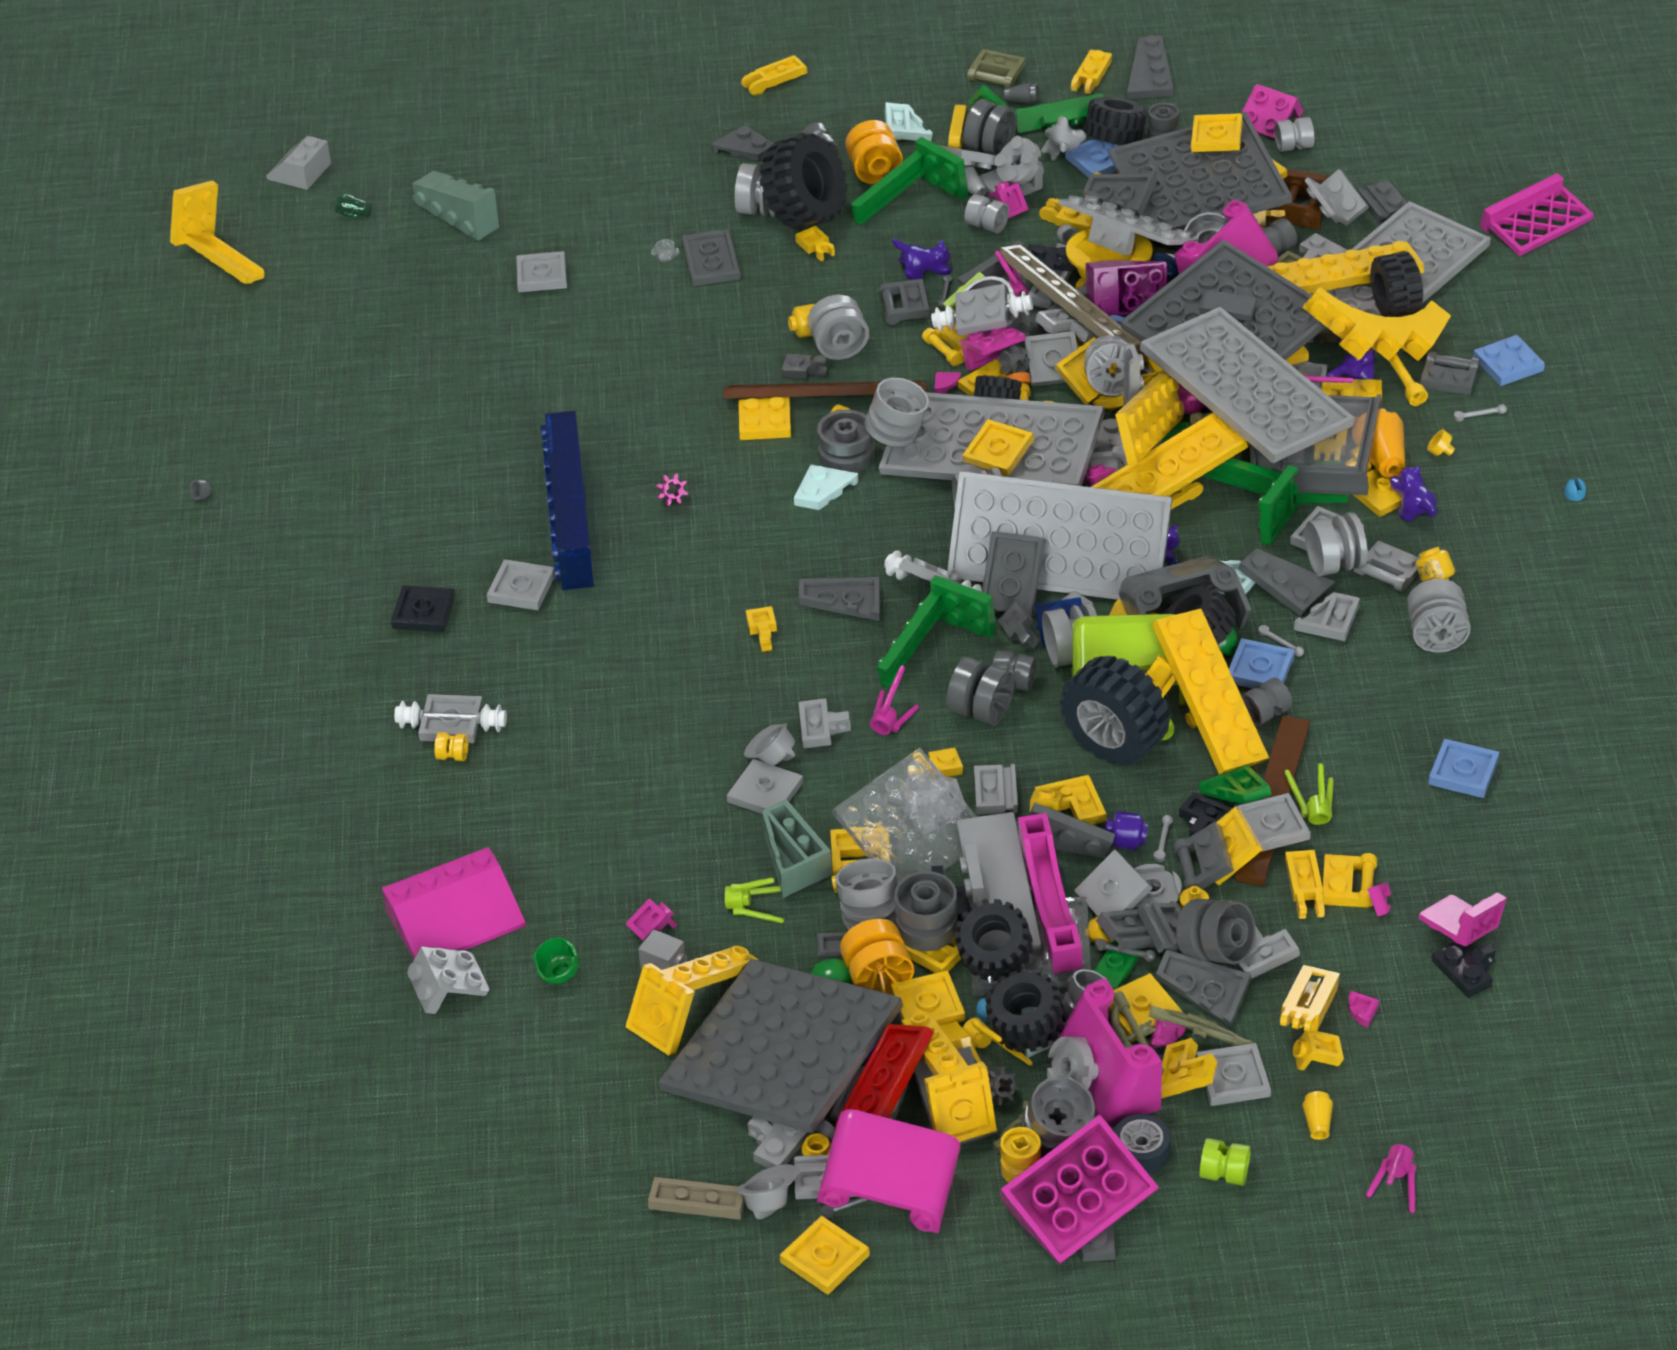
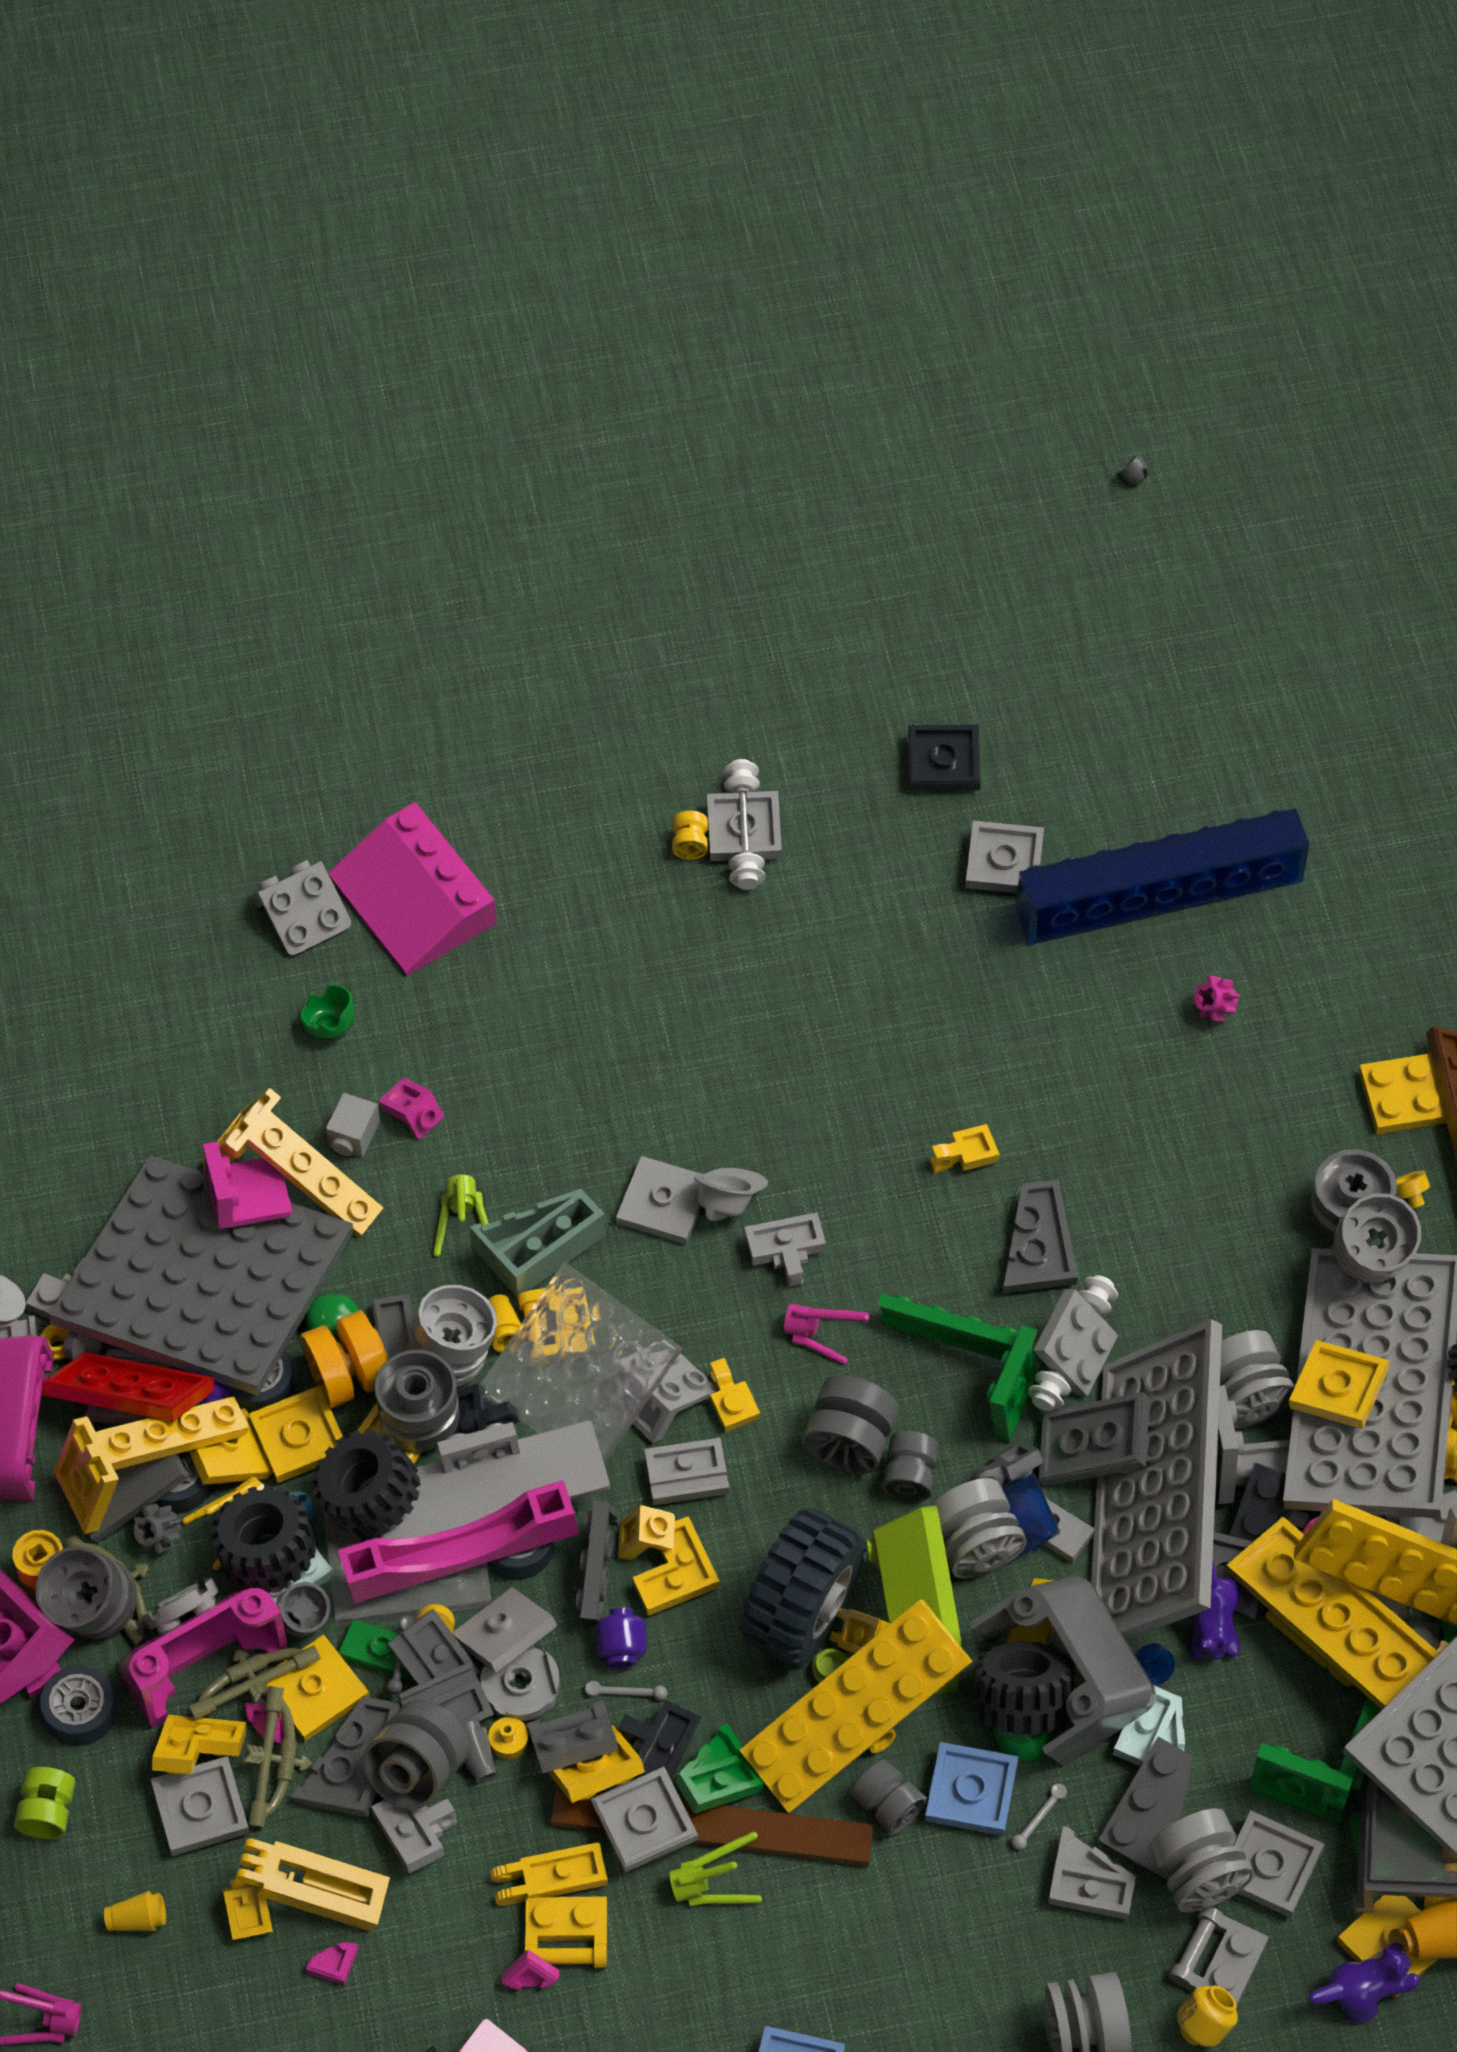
camera: 80 degrees right, 15 degrees up
(716, 1009) = (244, 1190): none -> dark pink bracket
(822, 485) = (1269, 1185): light aqua wing -> none

